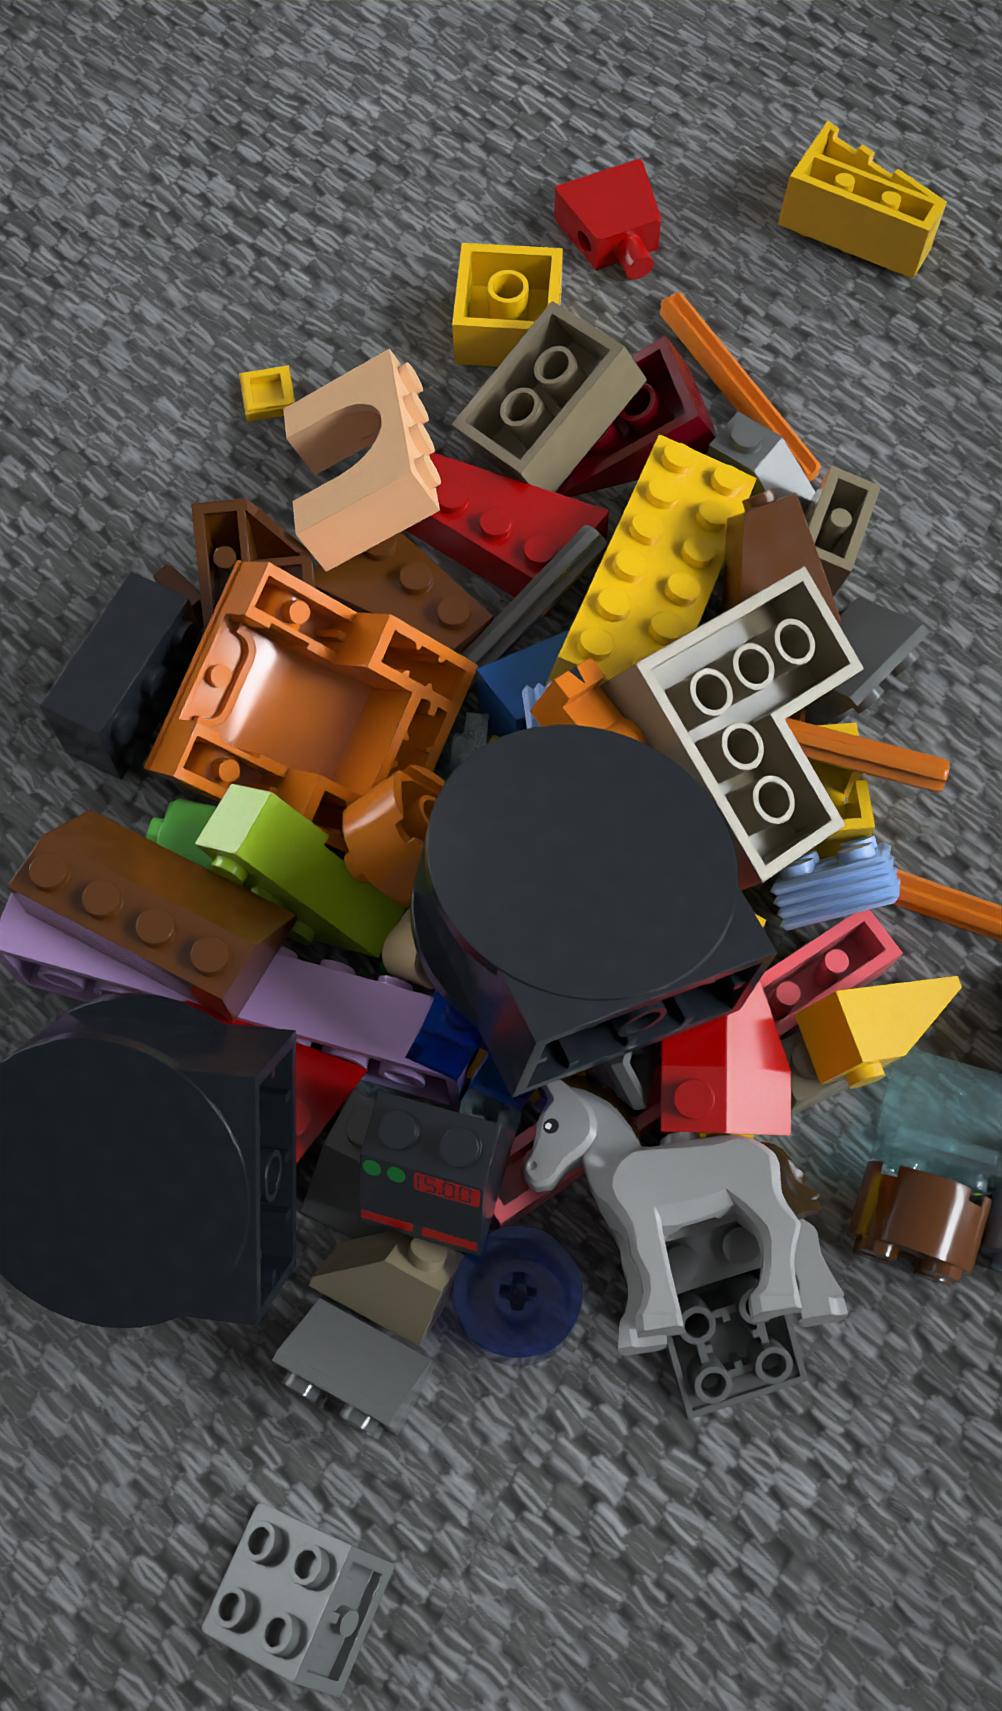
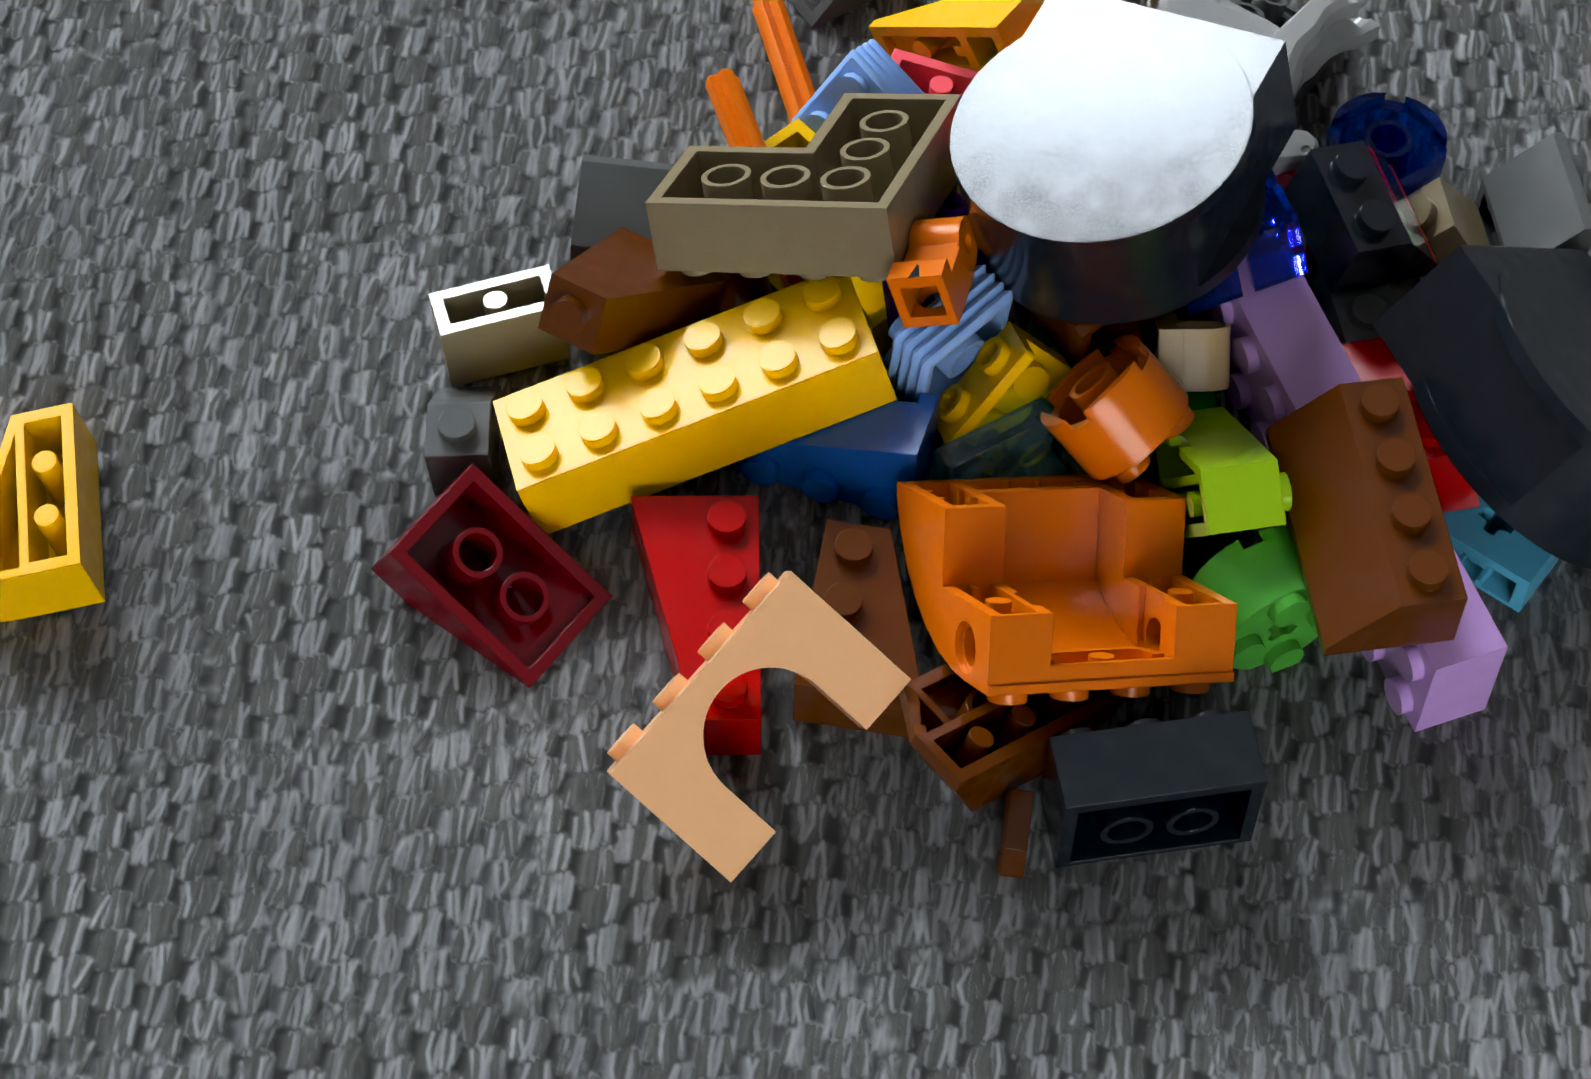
camera: 130 degrees left, 10 degrees down
(266, 392) = (702, 952): yellow tile -> none
(500, 298) = (429, 759): yellow brick -> none
(536, 598) = (782, 491): dark grey axle -> none
(550, 399) = (544, 617): dark tan brick -> none
(612, 217) = (216, 749): red torso -> none
(731, 377) = (353, 526): orange axle -> none

